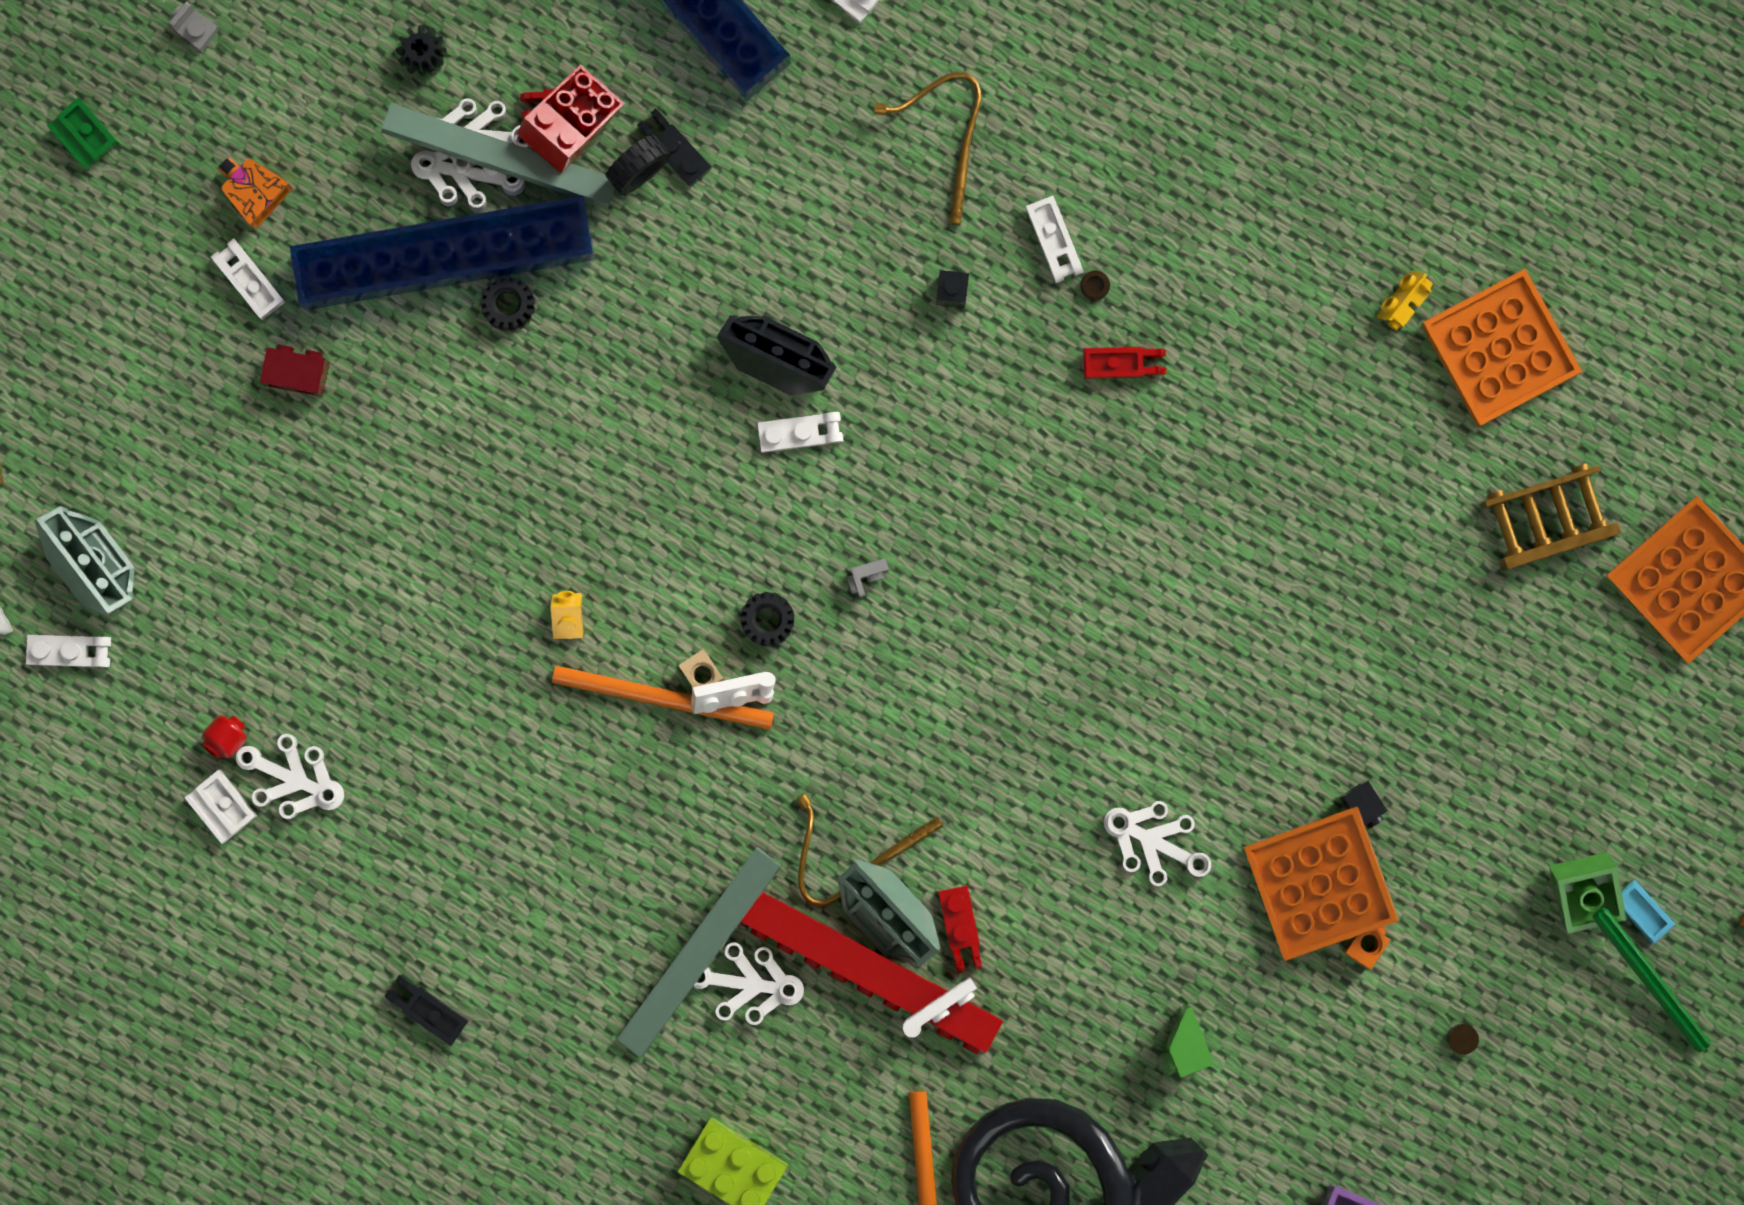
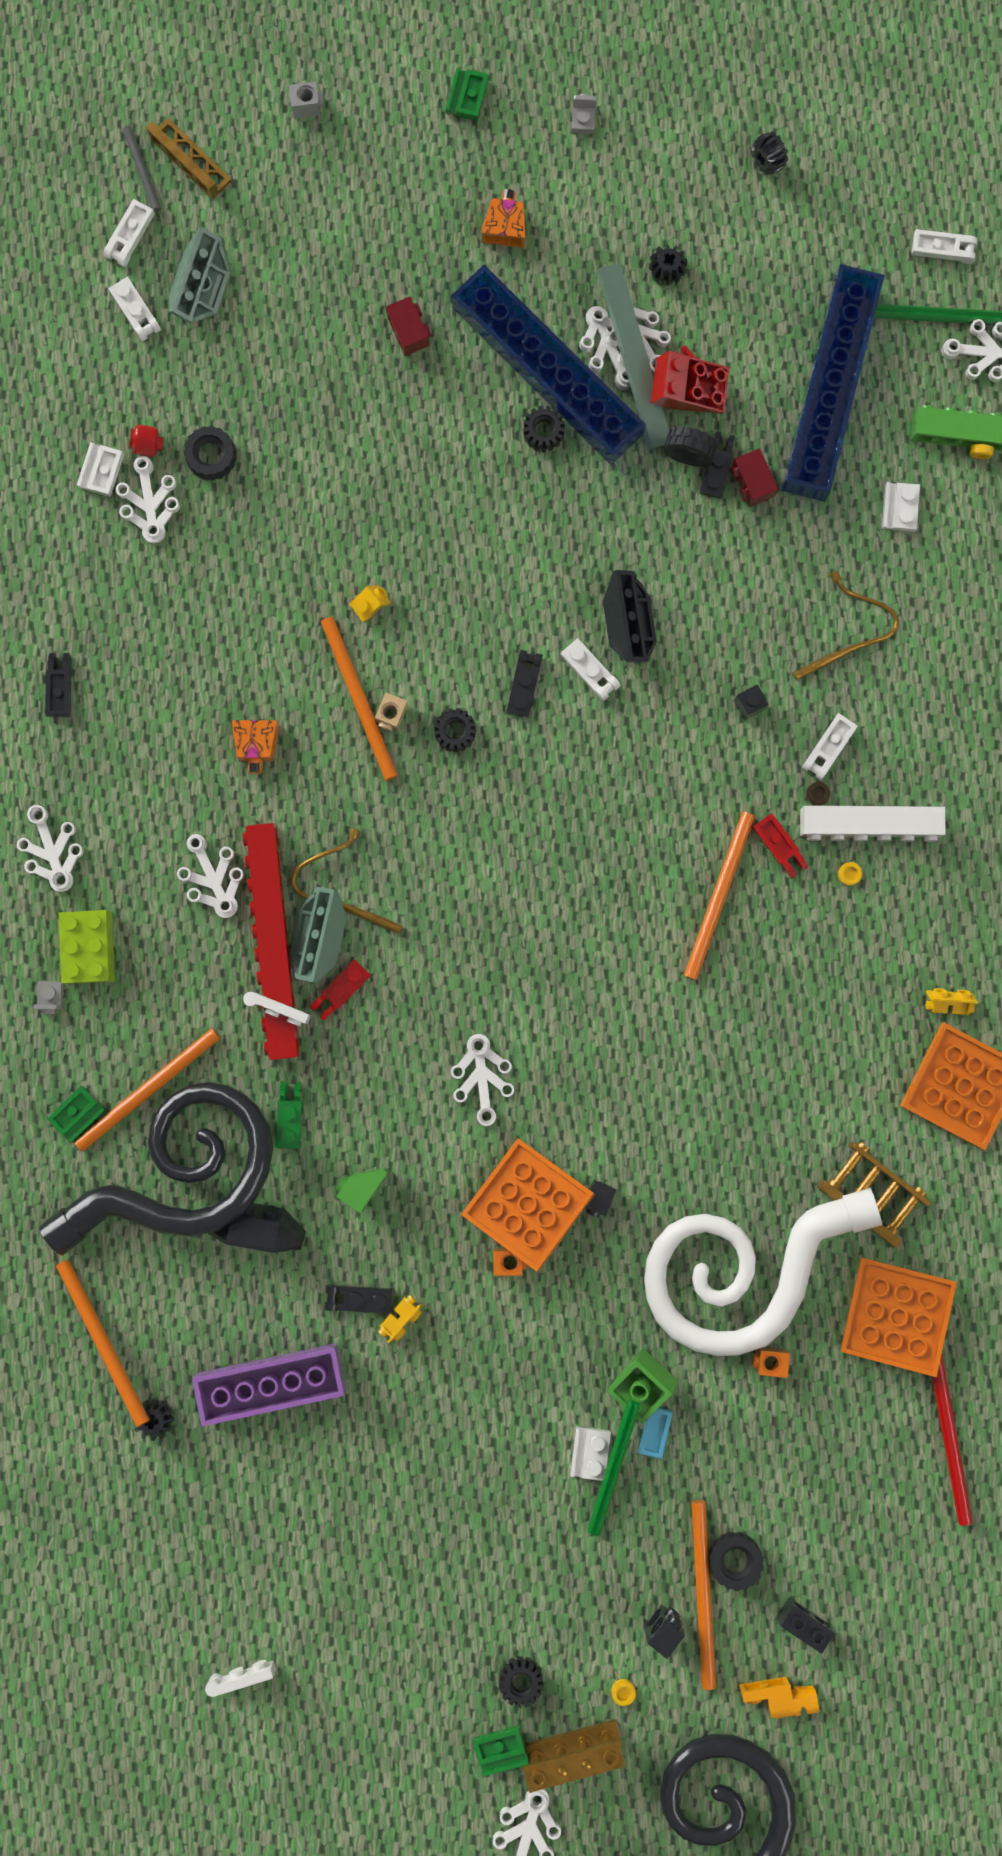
camera: 55 degrees right, 0 degrees up
(248, 280) = (446, 258): white plate -> none
(263, 676) = (210, 435): none -> black tyre
(603, 1138) = (51, 852): none -> white plant
(635, 840) = (255, 742): none -> orange torso
(699, 952) = (210, 830): sand green tile -> none
(715, 120) = (754, 478): none -> dark red brick
(733, 692) = (392, 739): white plate -> none
(768, 512) = (524, 684): none -> black plate
(871, 571) = (531, 776): light grey bracket -> none
(1061, 1075) = (289, 1118): none -> green hinge
(1132, 462) = (719, 895): none -> orange piece
(1163, 251) = (872, 822): none -> white brick
(1201, 311) = (849, 874): none -> yellow tile
(1299, 1128) = (359, 1299): none -> black plate
(1347, 1086) = (395, 1327): none -> yellow hinge
(1463, 1039) = (490, 1367): dark brown tile -> none
(1554, 559) = (851, 1213): none -> white animal
(1620, 994) = (590, 1453): none -> white plate
(1664, 738) = (780, 1367): none -> orange brick

